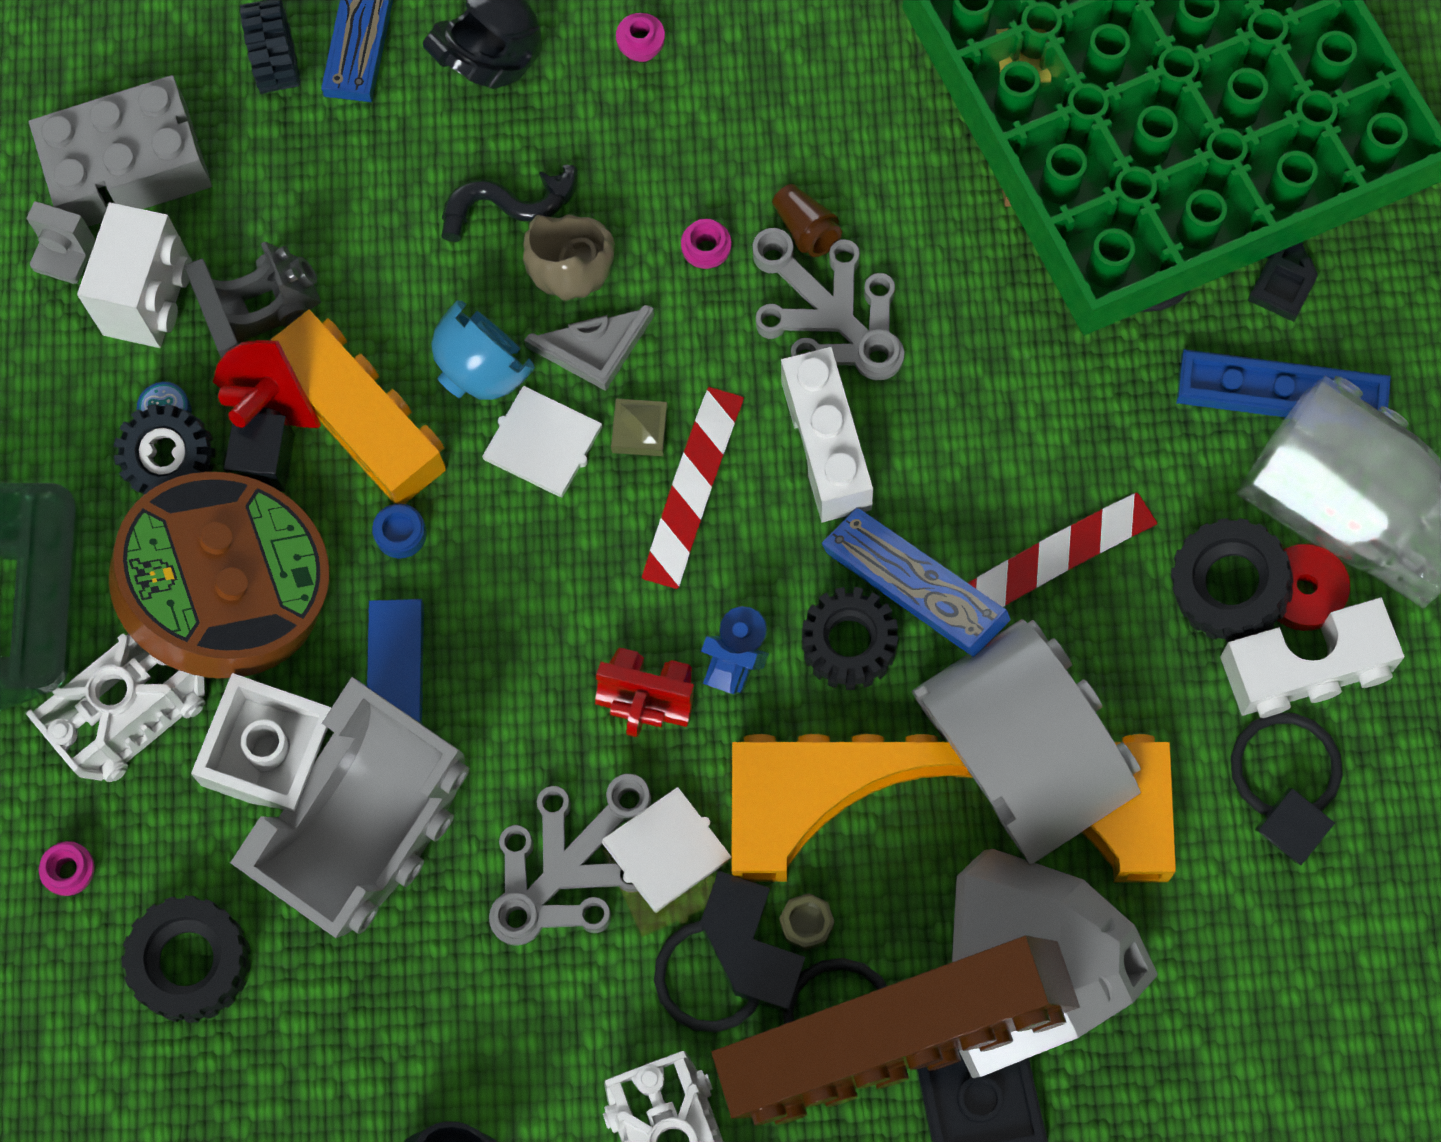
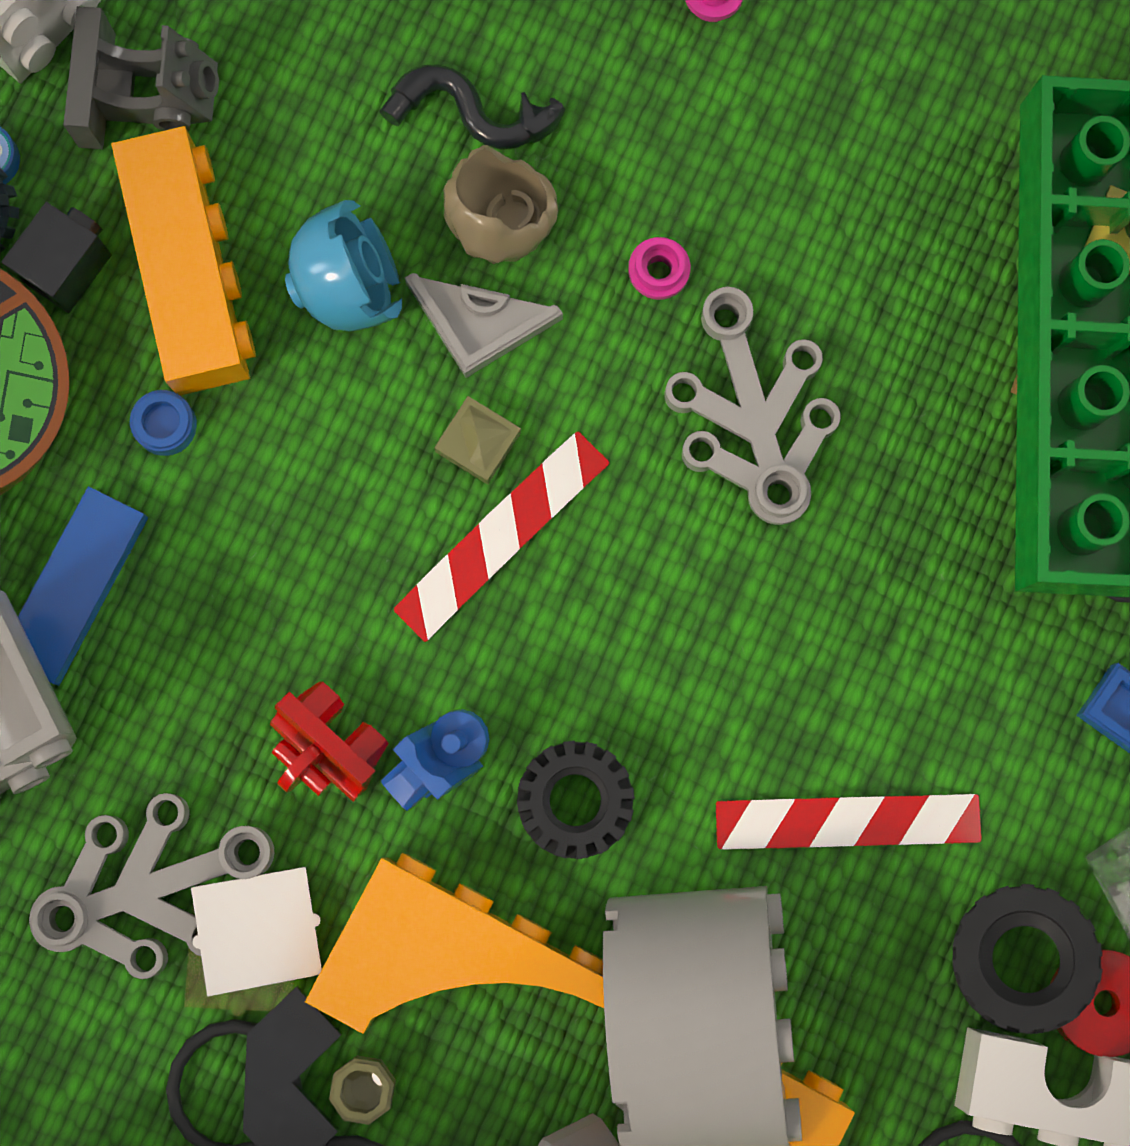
camera: 20 degrees right, 10 degrees up
(261, 377) = (86, 184): red shield -> none
(542, 441) = (367, 401): white piece -> none
(808, 222) = (782, 299): reddish brown cone -> none
(827, 433) = (672, 557): white arch -> none
(916, 582) = (677, 785): blue tile -> none

